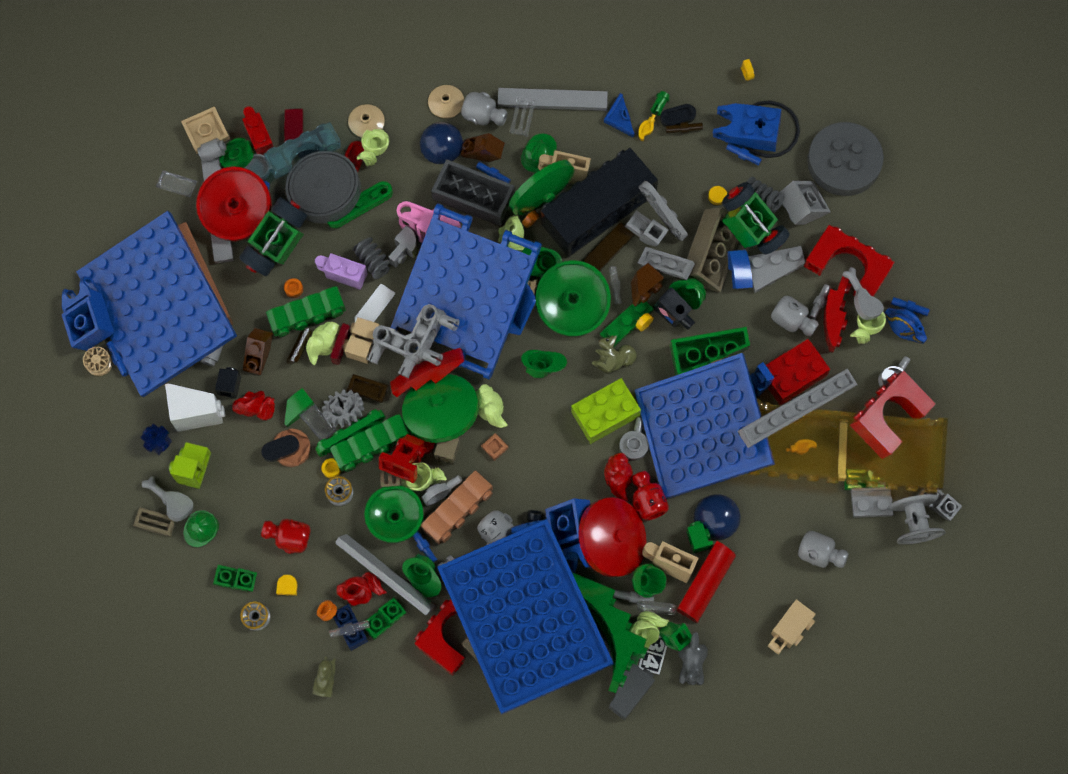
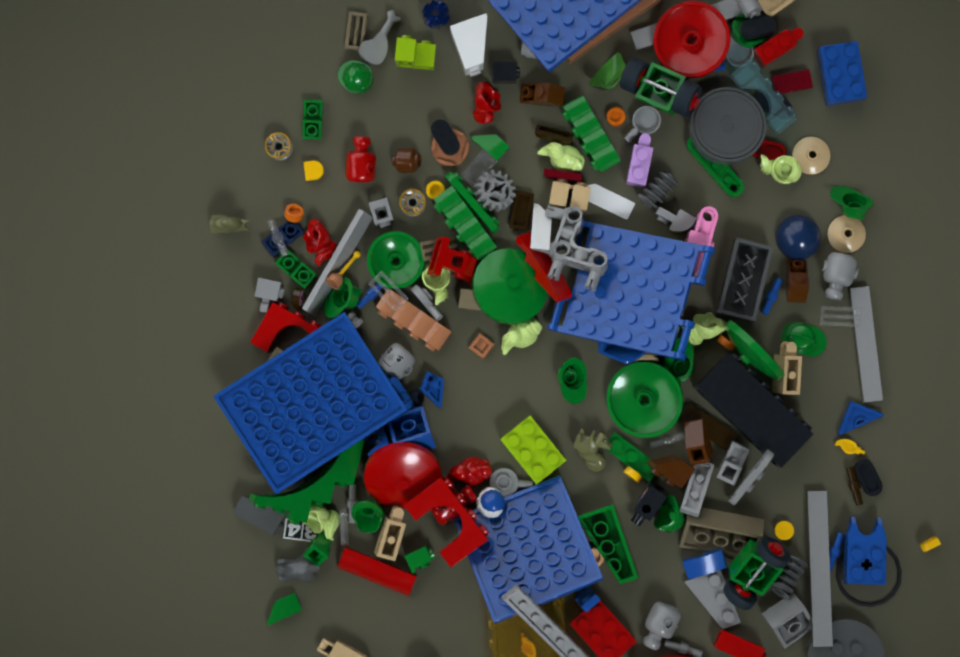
camera: 80 degrees right, 15 degrees up
(235, 145) = (757, 27): none -> black tile
(249, 286) = (608, 73): none -> bright green piece
(294, 81) = (841, 73): none -> blue brick
(295, 490) = (406, 160): none -> reddish brown head
(303, 262) = (645, 120): none -> light grey piece
(339, 517) = (378, 206): none -> light grey brick
(389, 368) = (540, 229): none -> white sticker
(402, 648) = (268, 291): none -> light grey brick
(403, 576) = (335, 279): none -> nougat hinge
(414, 619) = (297, 297): none -> dark brown tile
(418, 90) = (851, 201): none -> green piece
(431, 528) = (399, 302): none -> clear tile
(529, 499) = (432, 387): none -> blue piece
(621, 256) = (697, 442): none -> reddish brown slope
(652, 457) = (490, 502): none -> blue hair
(662, 98) = (878, 456): green pin -> none
(681, 475) = (442, 494): none -> red arch
(718, 515) = (442, 579): dark blue piece -> none
(732, 683) = (284, 608): none -> green slope
(758, 167) = (819, 569): none -> light grey tile

